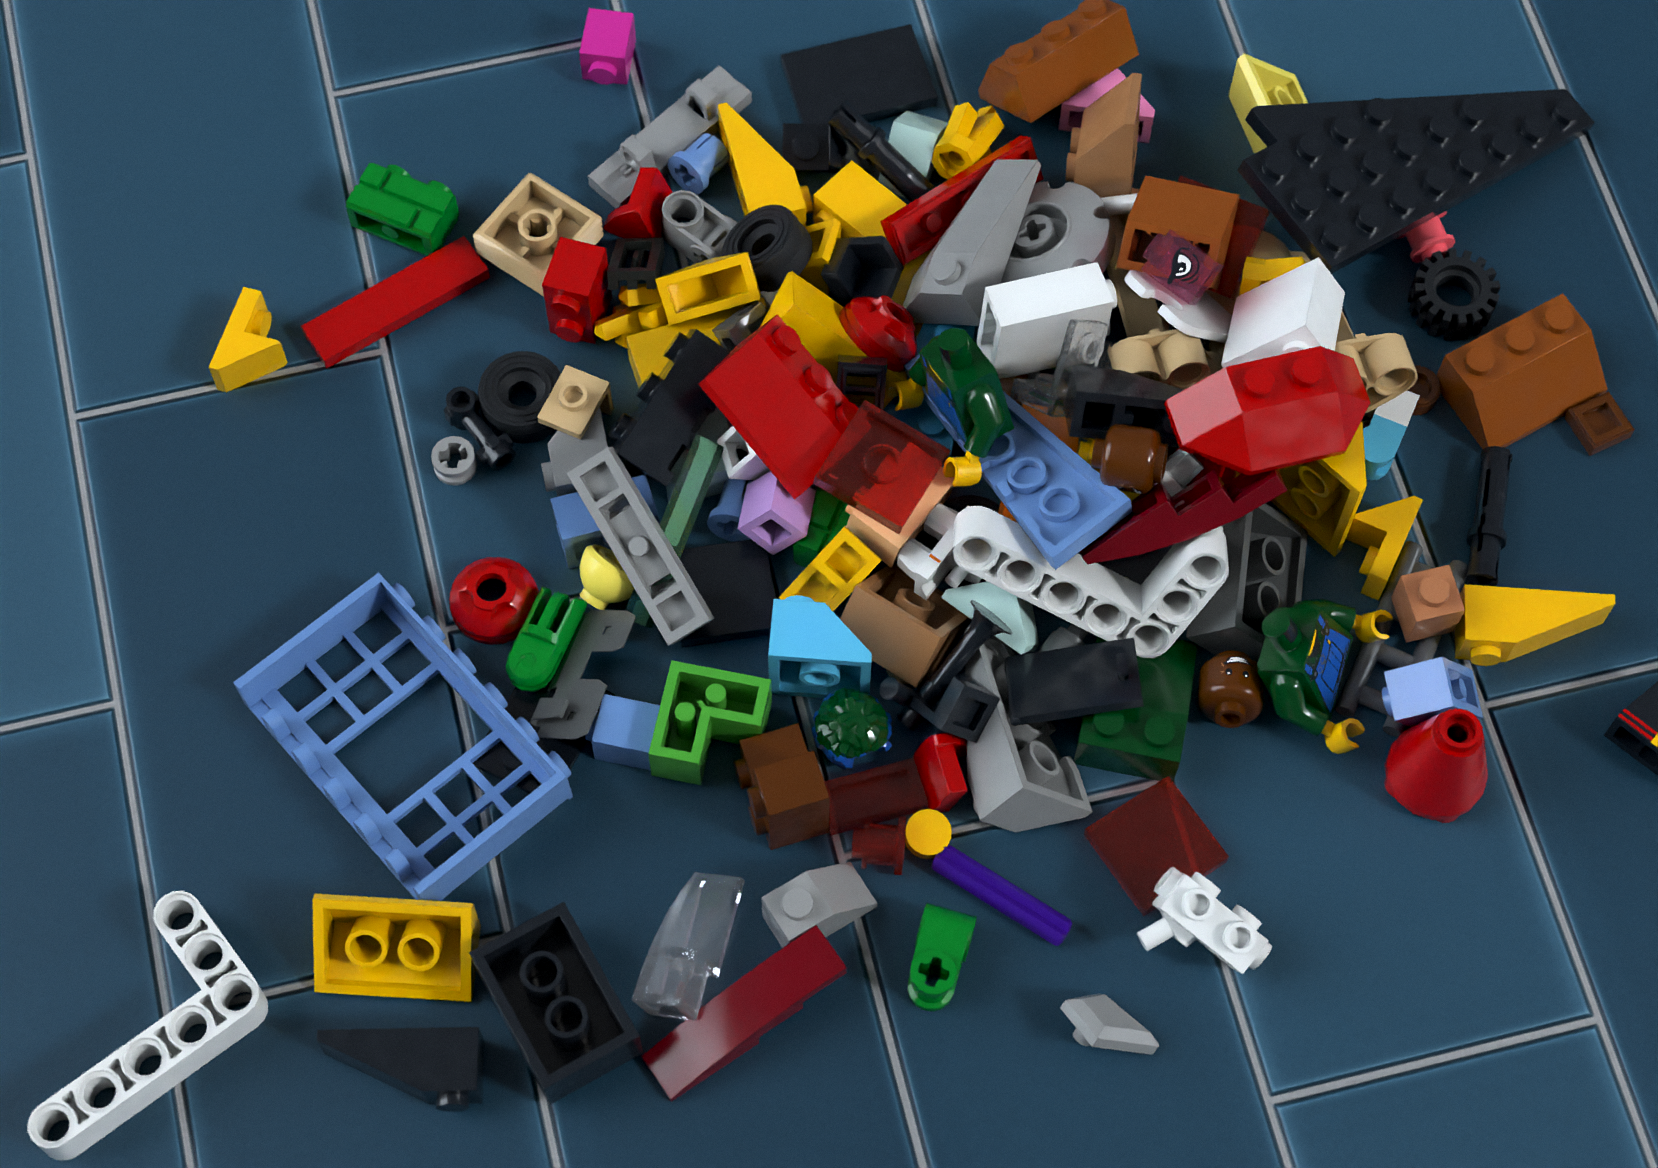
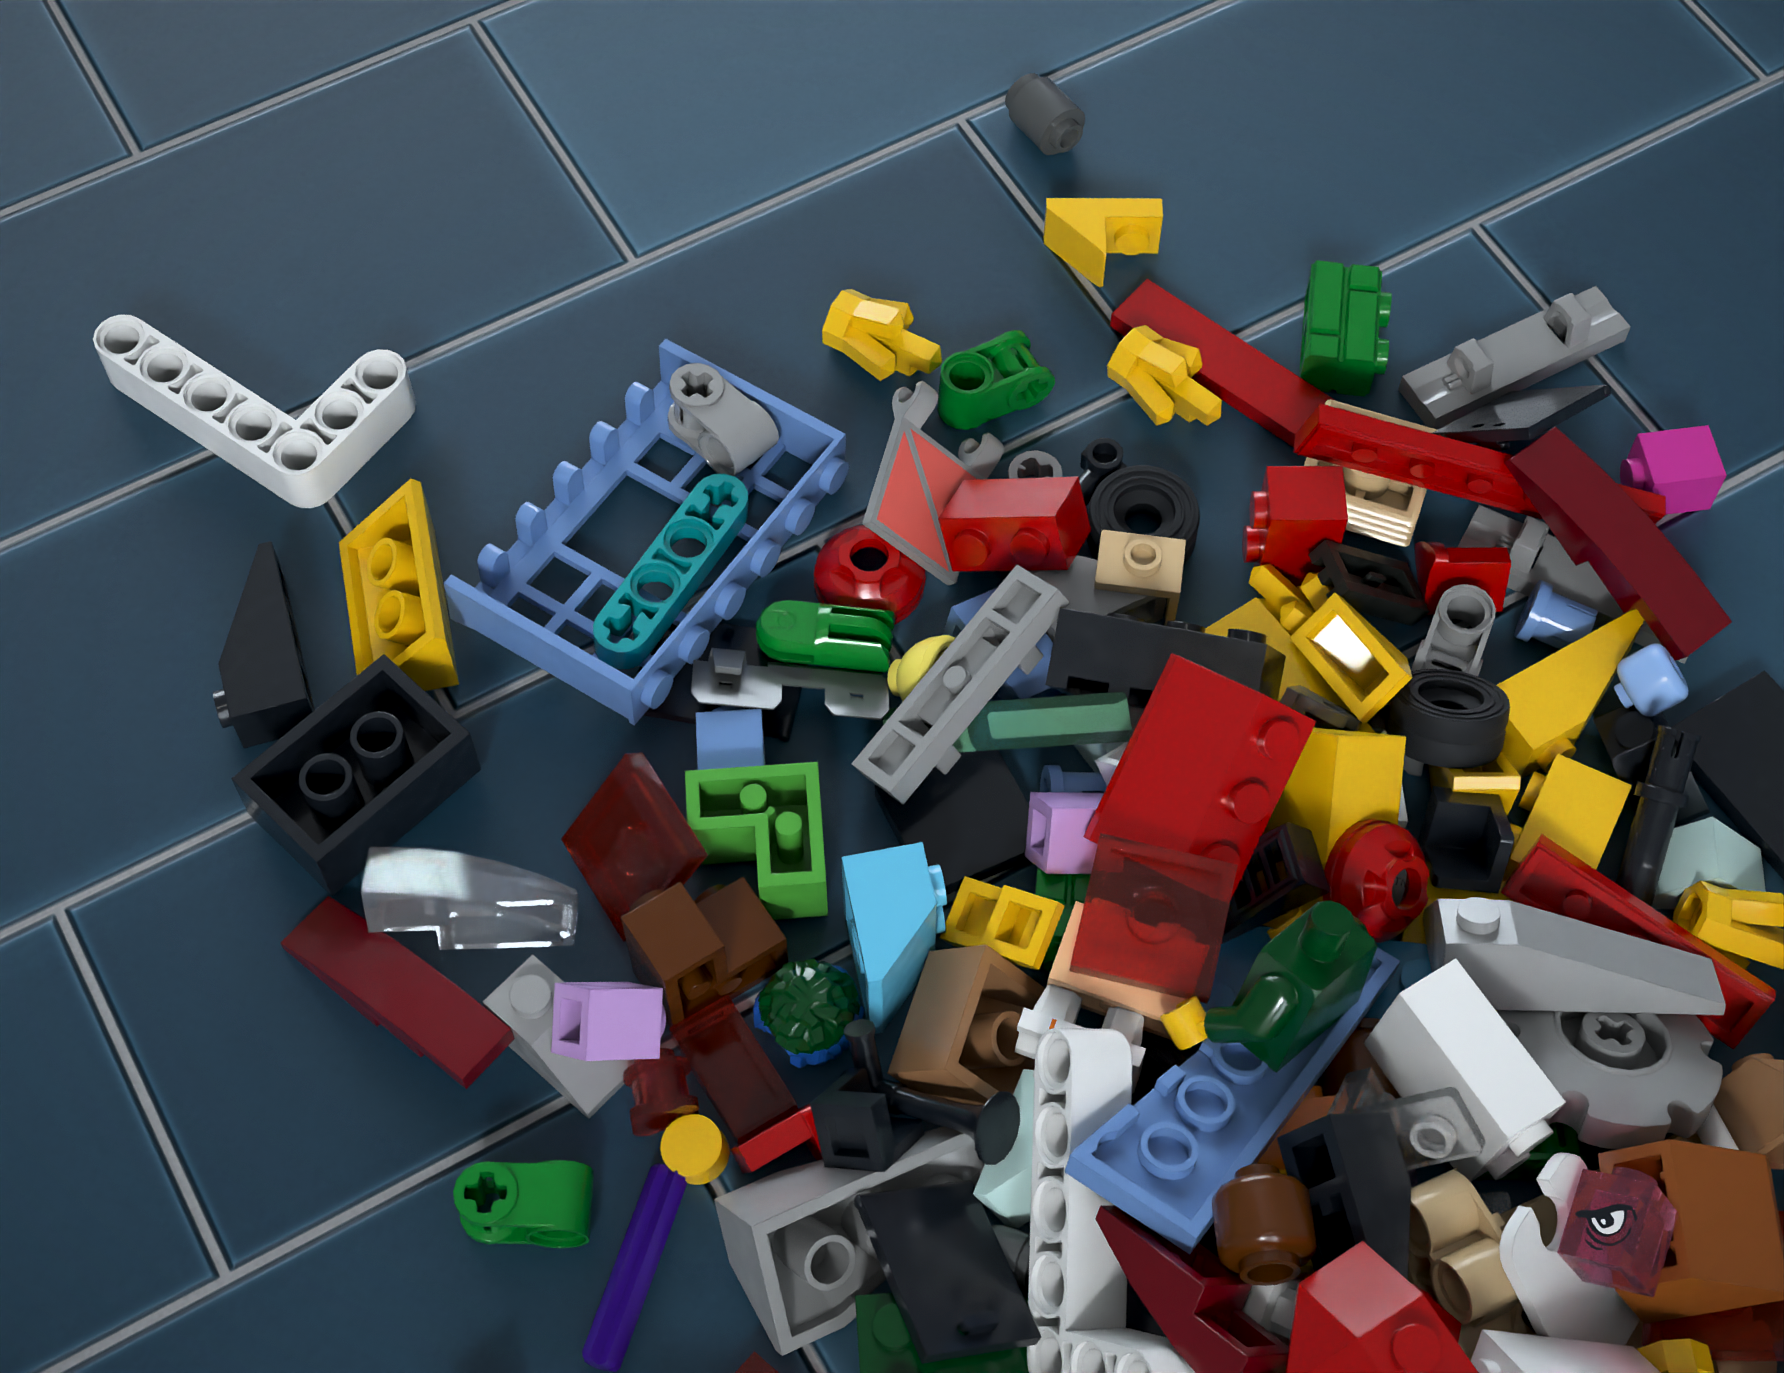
camera: 75 degrees right, 5 degrees down
(108, 348) = (1045, 114): none -> dark grey brick
(280, 530) = (877, 335): none -> yellow rock
(325, 664) = (718, 419): none -> light grey piece
(355, 456) = (991, 381): none -> green piece
(401, 342) = (1160, 377): none -> yellow rock
(443, 526) = (920, 480): none -> flag
(444, 737) = (665, 566): none -> teal beam
(467, 111) = (1513, 357): none -> light grey hinge
(506, 476) = (1015, 523): none -> red brick
(539, 118) = (1522, 415): none -> black container
(581, 162) = (1427, 460): none -> red tile
(680, 91) = (1619, 541): none -> dark red slope
(687, 812) = (632, 839): none -> clear red tile
(779, 119) = (1650, 681): none -> light blue piece
(833, 854) = (607, 1021): none -> lavender brick

